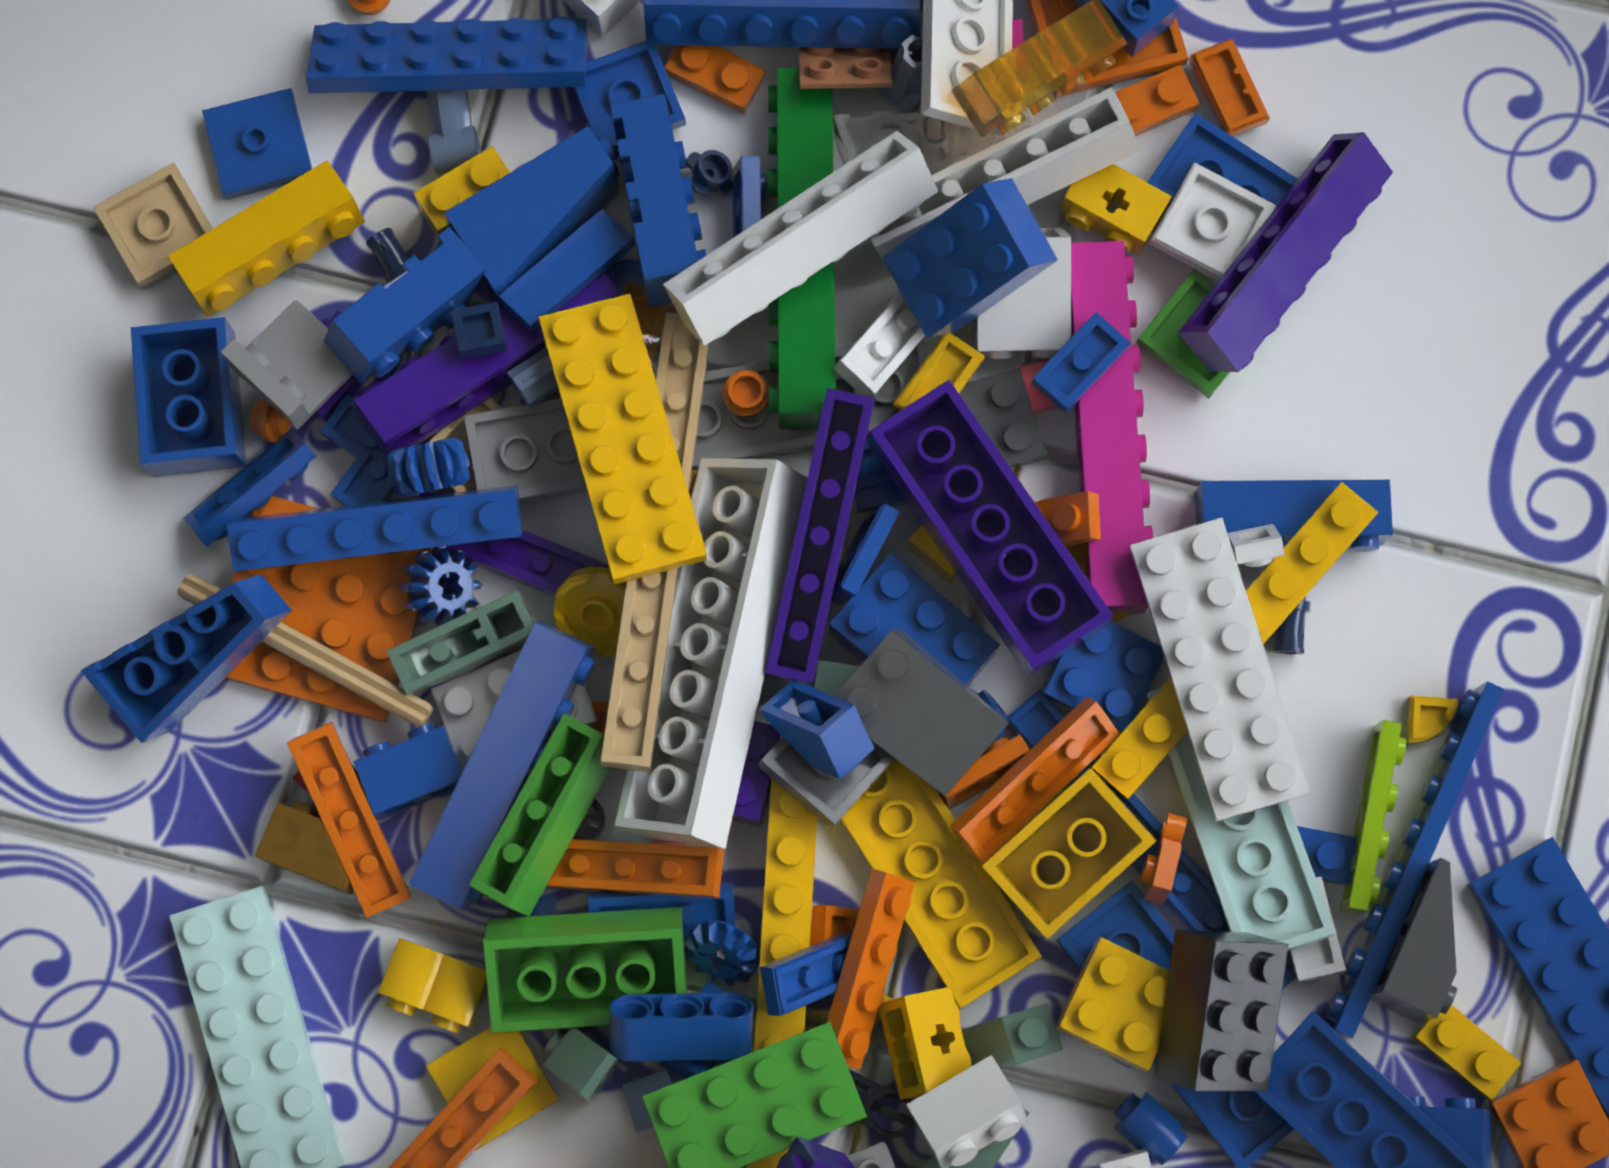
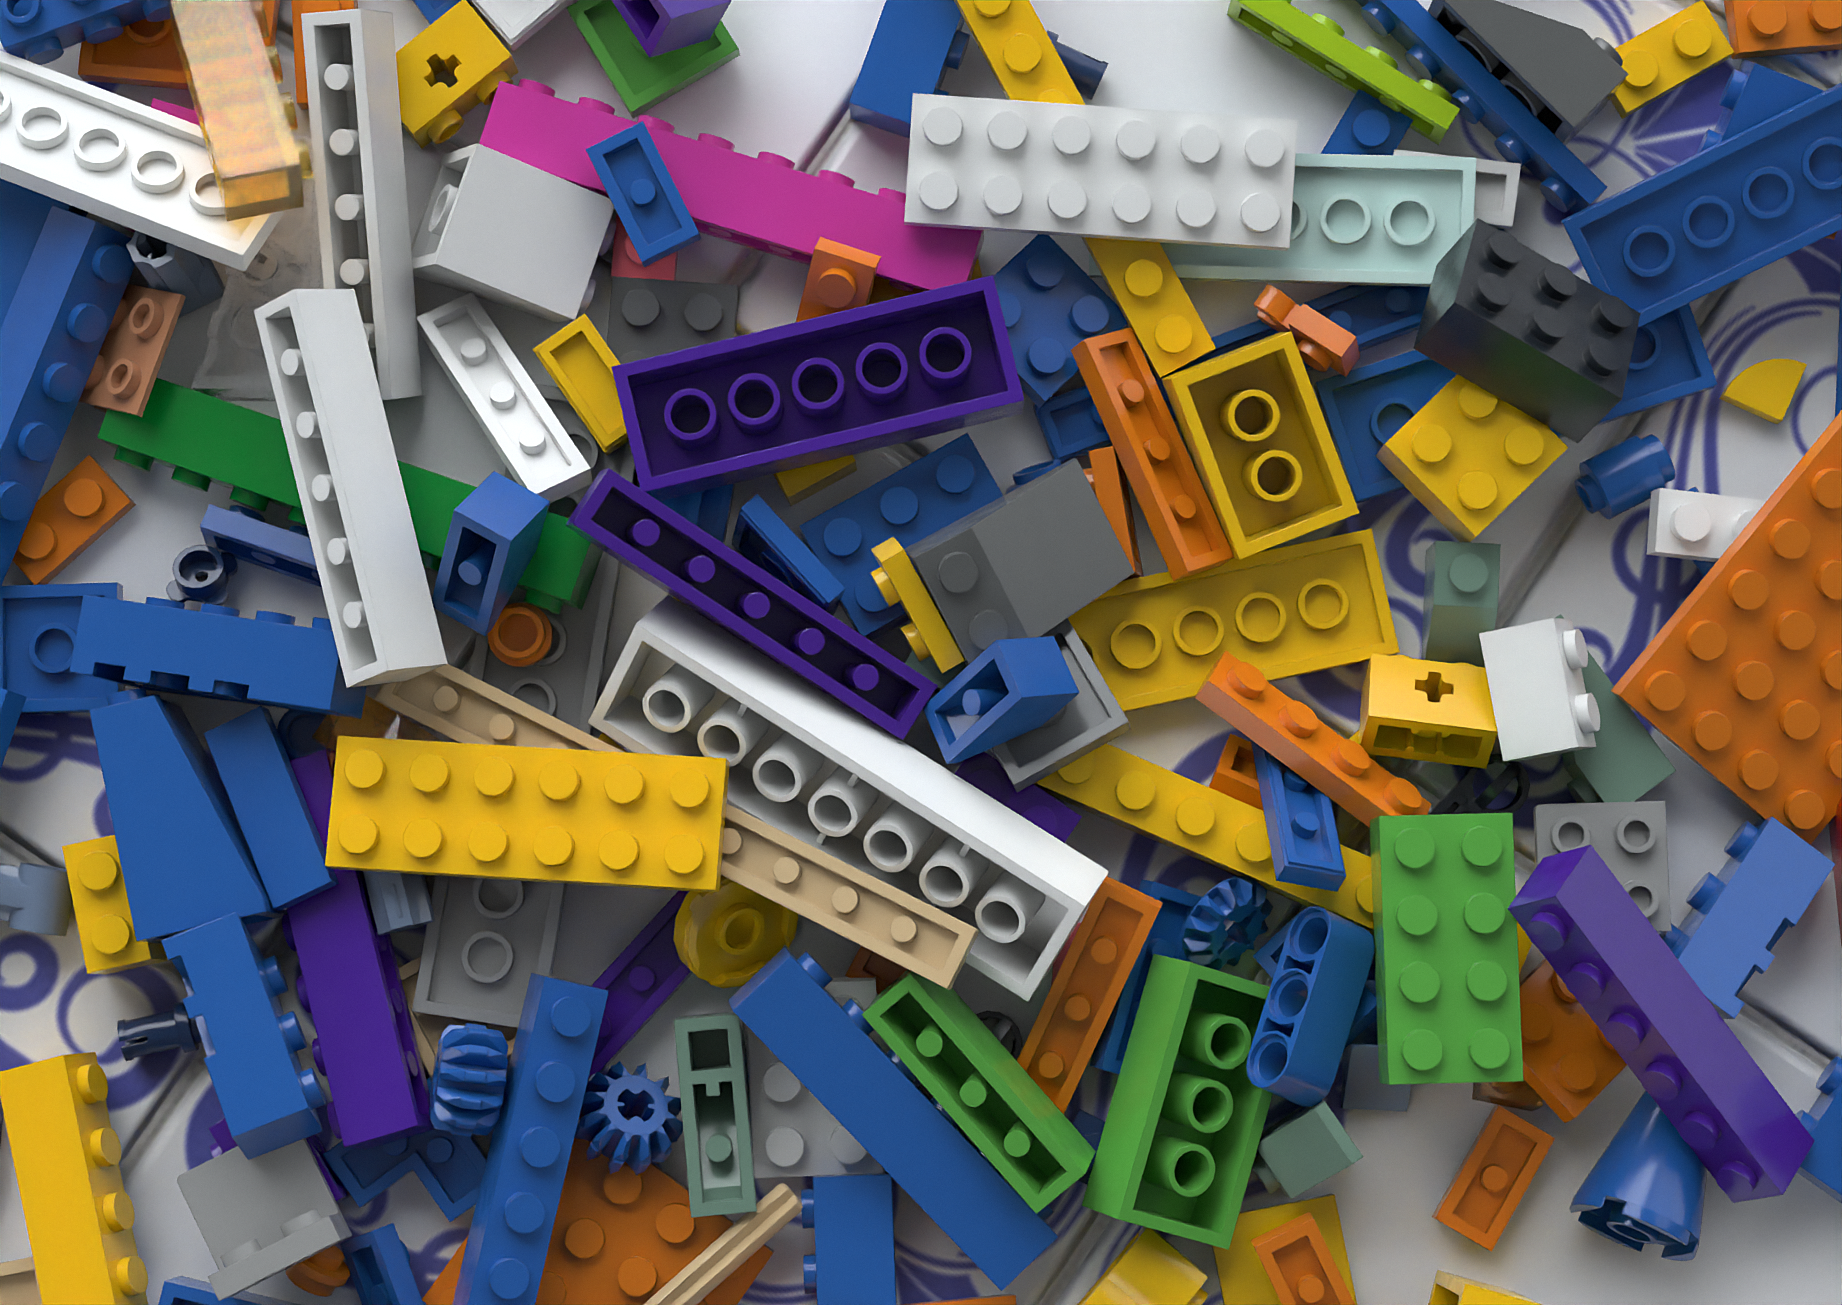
camera: 65 degrees left, 5 degrees up
(479, 330) = (313, 950): dark blue plate -> none
(791, 344) = (488, 551): none -> blue slope
(872, 631) = (900, 583): none -> yellow plate
(969, 258) = (459, 280): blue brick -> none
(1256, 545) = (959, 64): white plate -> none

